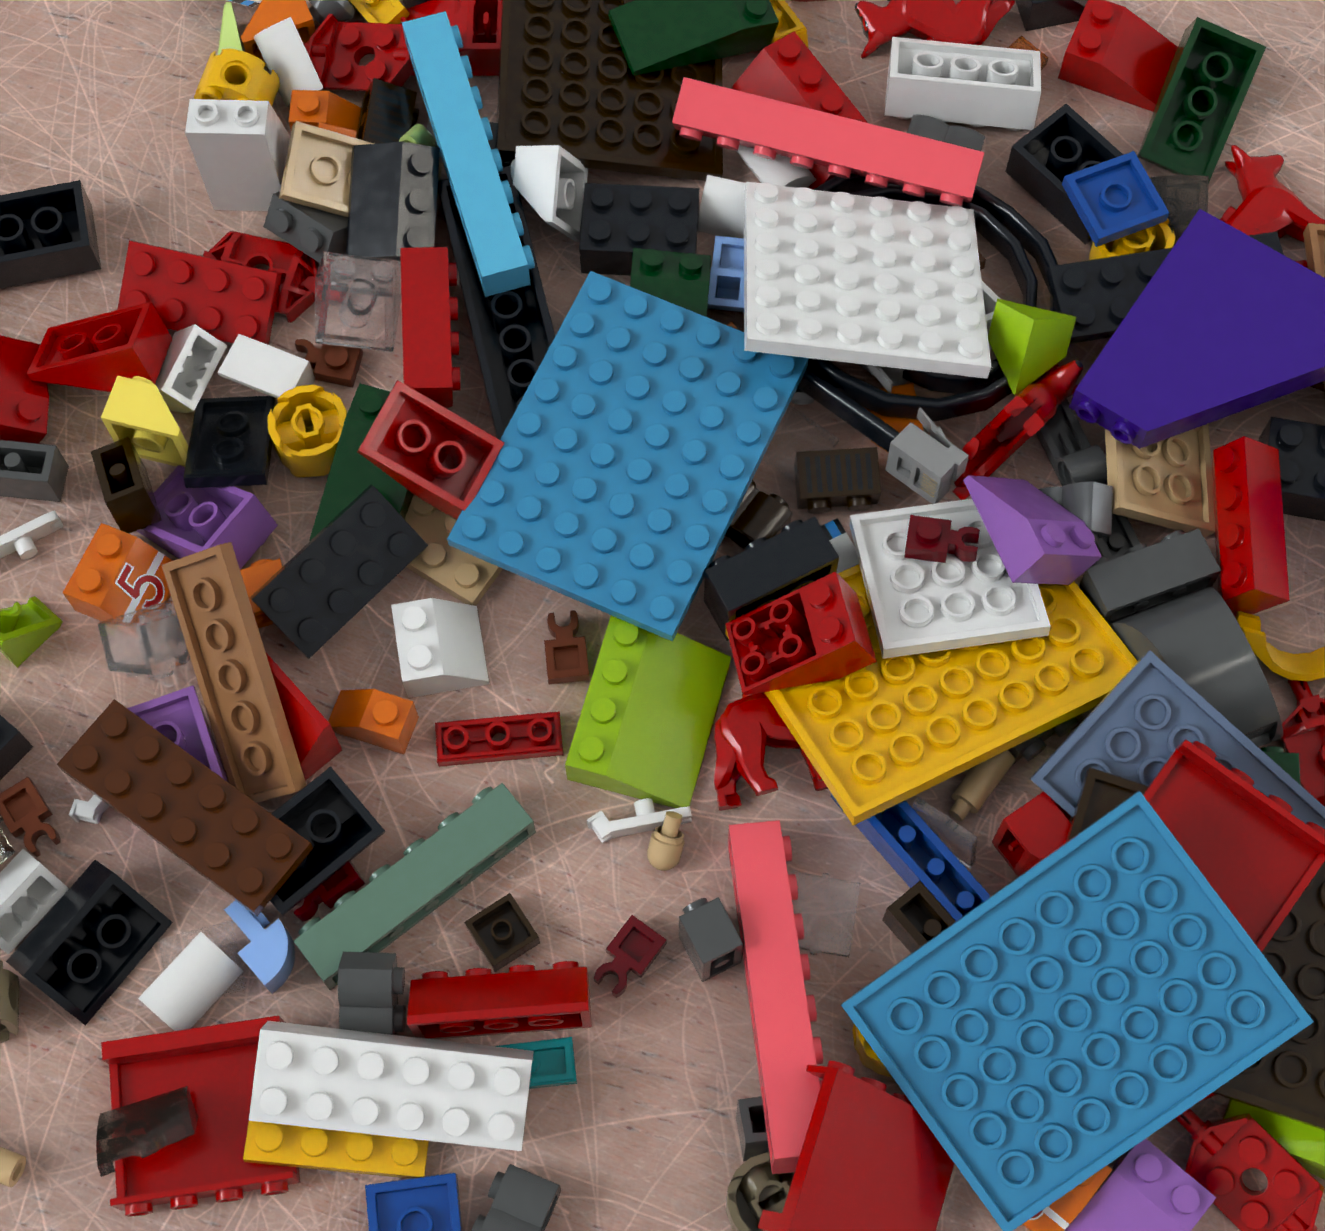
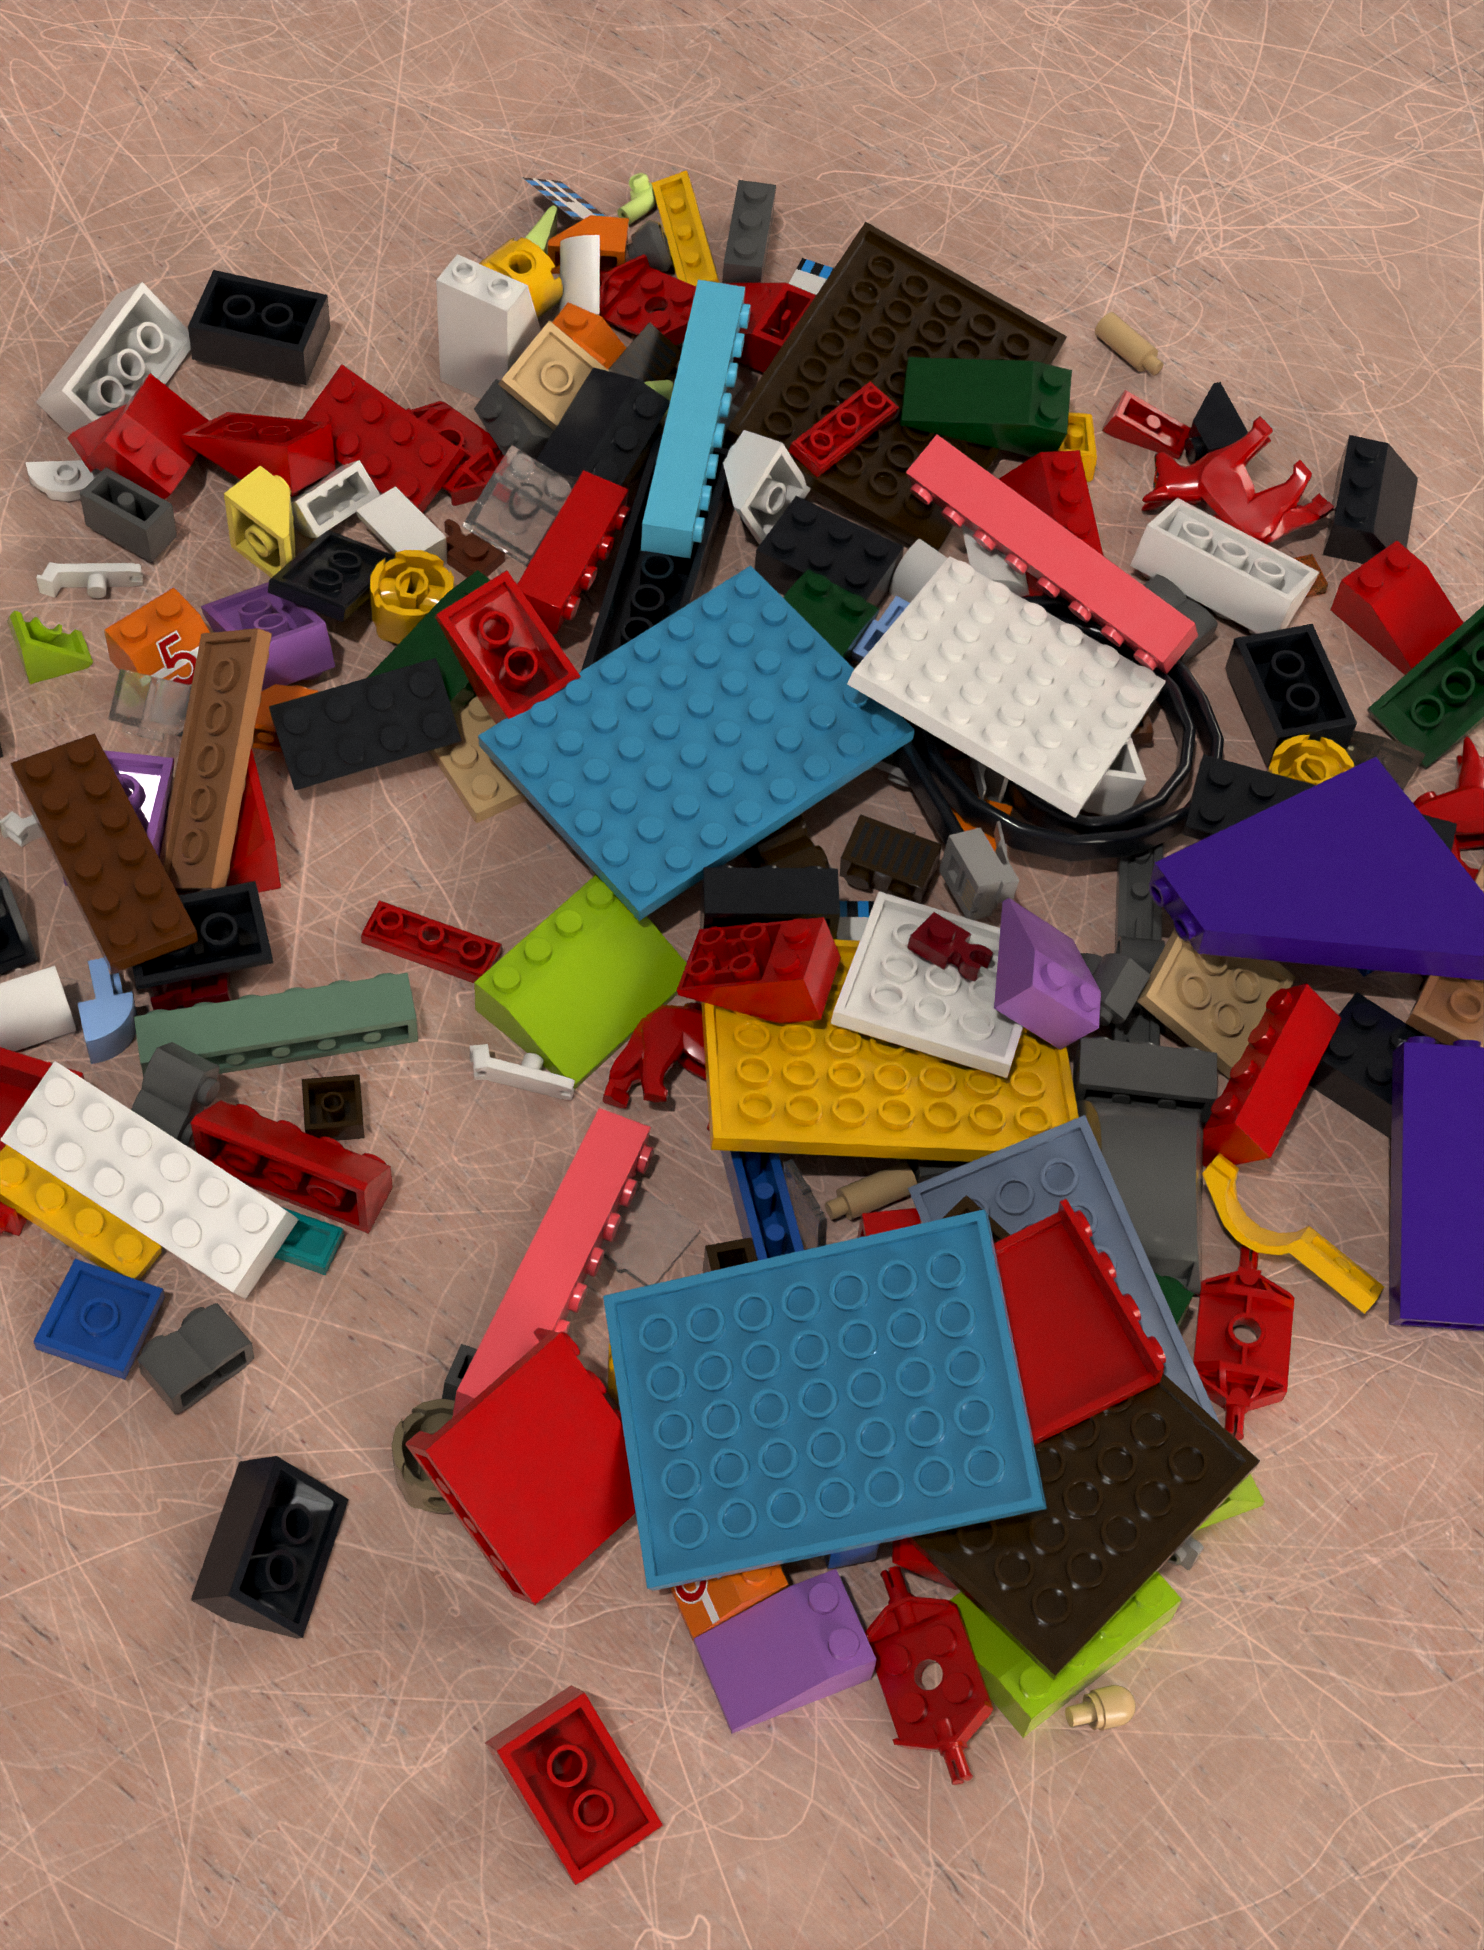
camera: 20 degrees right, 10 degrees down
(126, 486) = (215, 568): dark brown brick -> none
(375, 718) = (327, 872): orange slope -> none
(439, 646) = (420, 835): white slope -> none
(566, 654) = (538, 896): copper plate -> none
(592, 103) = (843, 429): none -> red tile
(632, 950) = (444, 1180): dark red plate -> none
(666, 843) = (533, 1103): tan cylinder -> none
(709, 938) = (519, 1195): dark grey brick -> none
(1018, 422) = (1096, 884): red animal -> none
(1028, 341) = (1143, 810): lime slope -> none
(1115, 198) = (1307, 724): blue plate -> none

